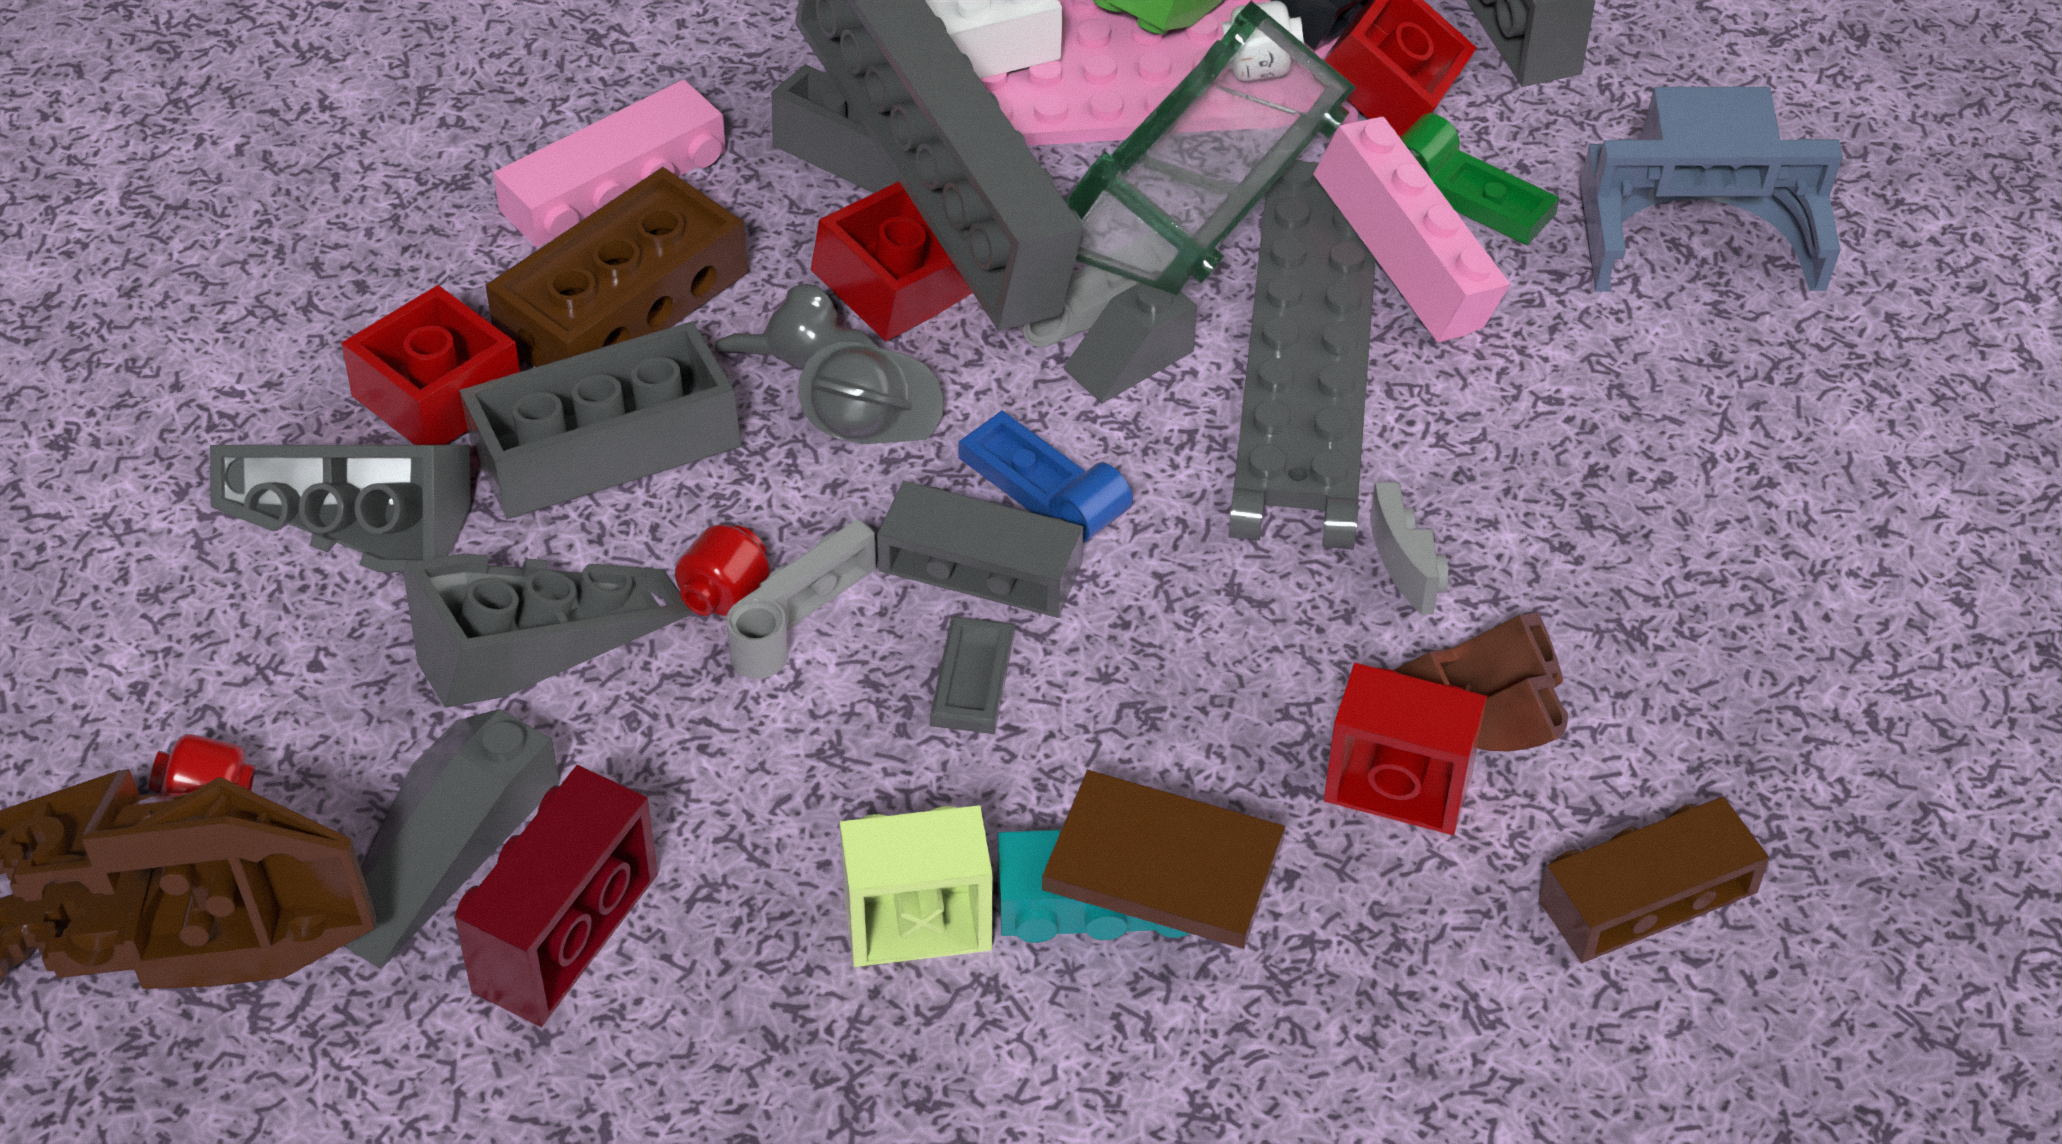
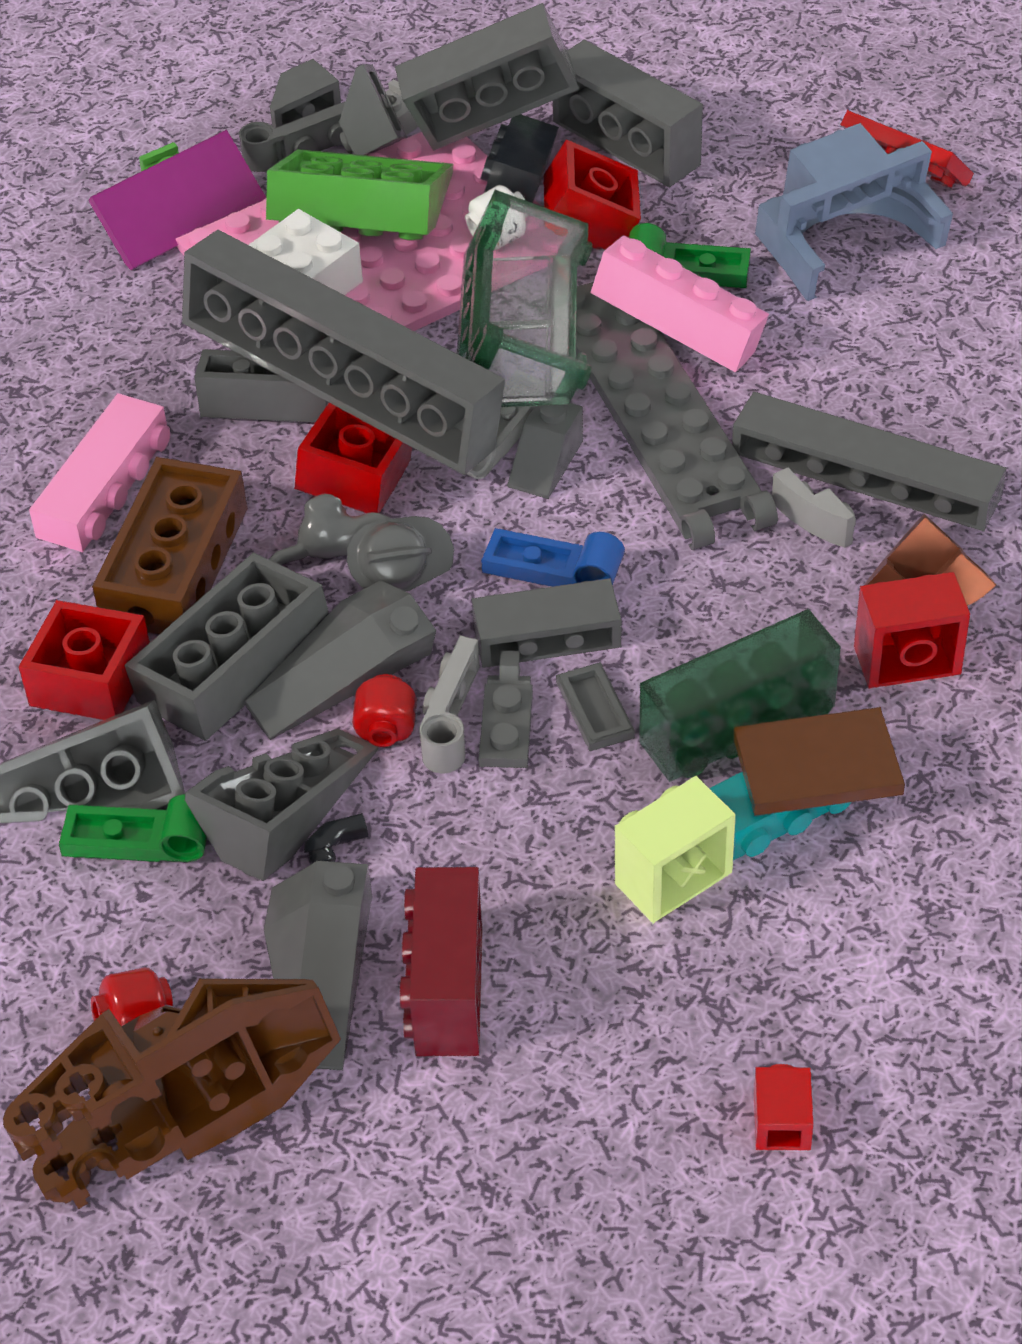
camera: 25 degrees left, 0 degrees up
(341, 586) = (133, 833): none -> green plate
(564, 689) = (334, 833): none -> black arm
(754, 477) = (359, 639): none -> dark grey wedge
(861, 639) = (506, 716): none -> dark grey hinge
(1154, 724) = (754, 680): none -> clear green brick
(1522, 520) = (869, 460): none -> dark grey brick
(1857, 167) = (943, 165): none -> red plate

